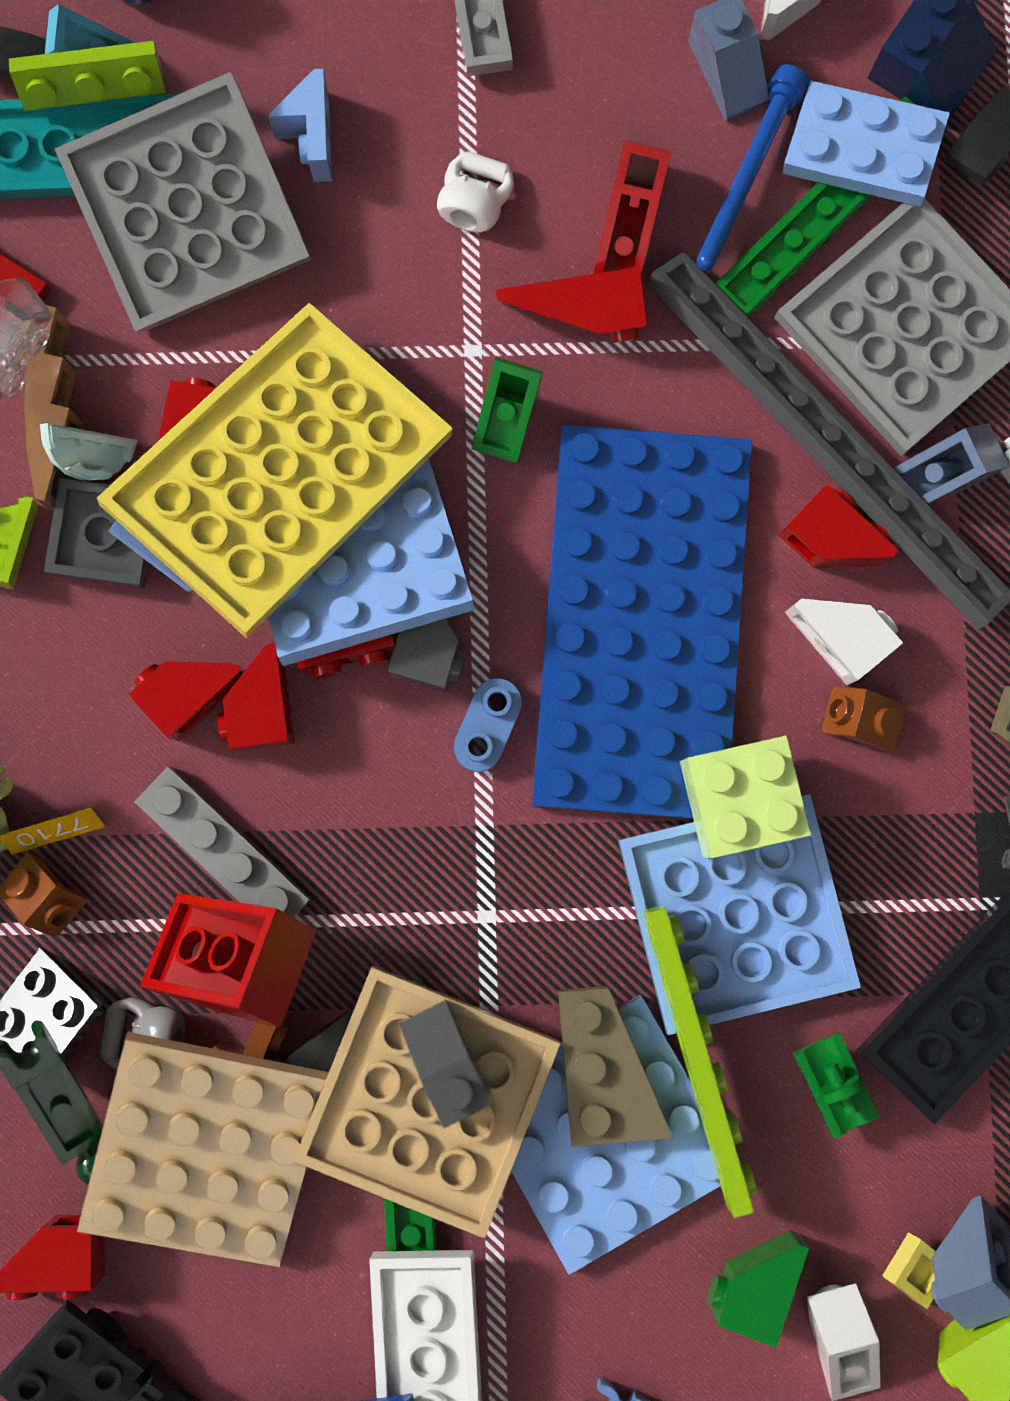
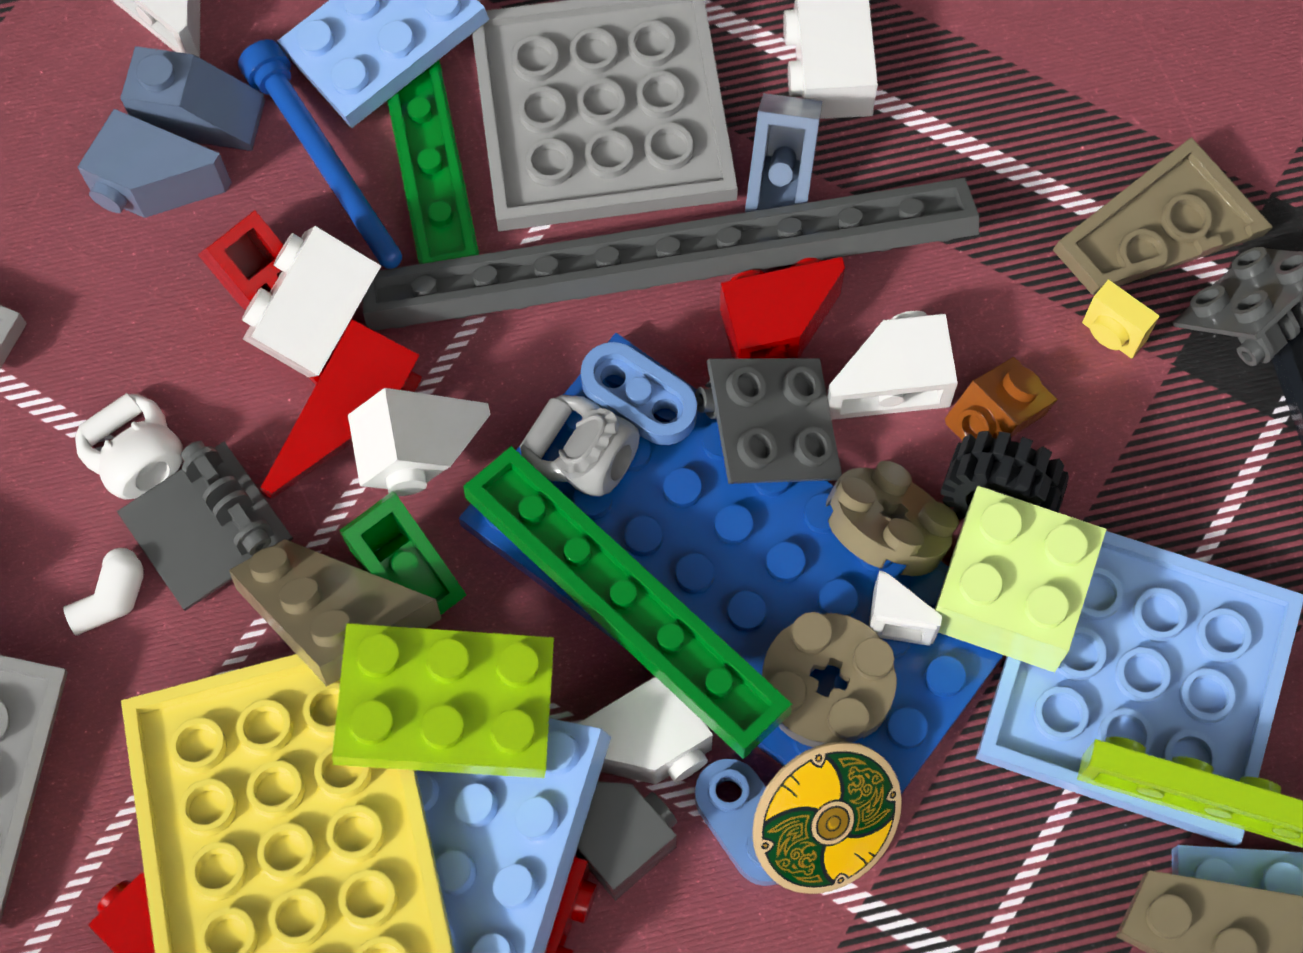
camera: 55 degrees left, 15 degrees down
(377, 251) = (113, 595): none -> white arm
(425, 493) = (444, 701): none -> lime plate
(447, 386) = (314, 597): none -> dark tan wing
(457, 273) = (202, 522): none -> dark grey hinge
(501, 631) = (652, 735): none -> white slope
(516, 771) = (827, 817): none -> shield
(568, 562) = (628, 602): none -> green plate
(587, 360) = (411, 437): none -> white slope
(620, 696) = (863, 662): none -> dark tan plate
(634, 232) = (309, 301): none -> white brick
(655, 480) = (595, 452): none -> light grey piece
(663, 64) = (149, 168): none -> sand blue slope
(672, 737) = (901, 614): none -> white slope
(714, 483) = (642, 394): none -> medium blue plate
(733, 717) = (890, 518): none -> dark tan plate
(753, 576) = (771, 419): none -> dark grey hinge
(812, 749) = (1003, 468): none -> black tyre
(979, 759) = (1119, 320): none -> light yellow plate

